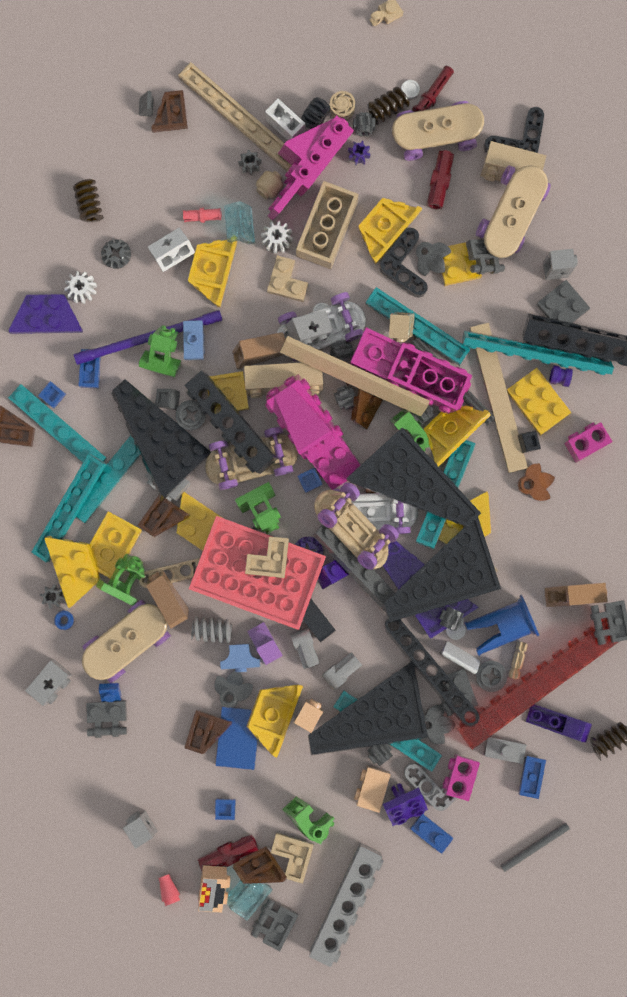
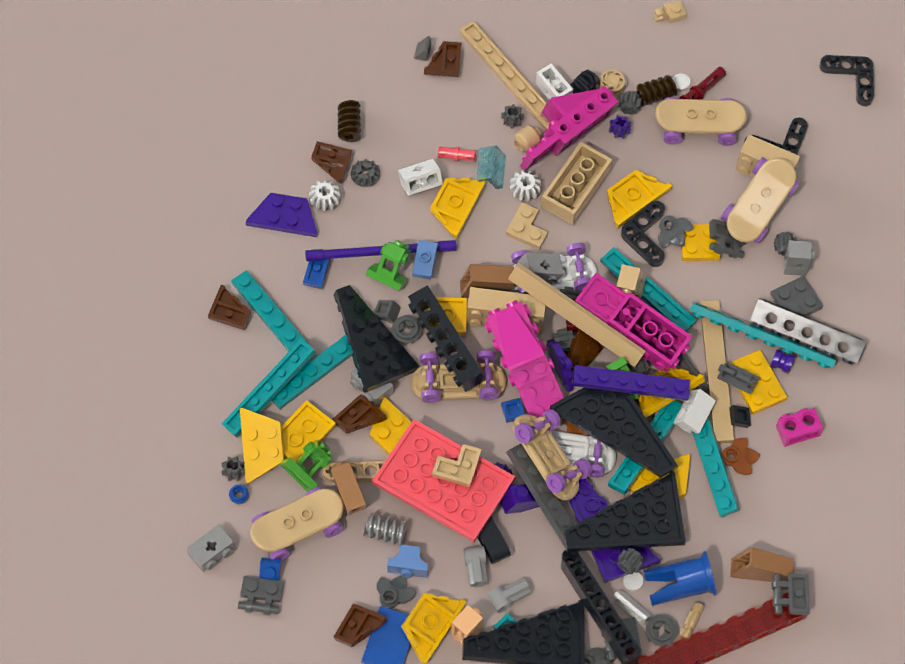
camera: 10 degrees right, 20 degrees down
(52, 394) = (275, 285): blue plate -> none
(80, 246) = (332, 159): none -> reddish brown wing
(264, 643) = (436, 555): medium lavender slope -> none
(267, 519) = (455, 415): bright green tile -> none
(347, 424) = (561, 363): none -> dark purple tile
(420, 437) = (631, 382): none -> dark purple plate
(440, 179) = (695, 164): dark red piece -> none
(486, 449) = (694, 411): none -> white hinge
(510, 493) = (716, 470): none -> teal plate
(521, 404) = (737, 377): none -> dark grey hinge
(542, 248) = (782, 241): none -> dark grey gear
(586, 43) = (859, 71): none -> black beam

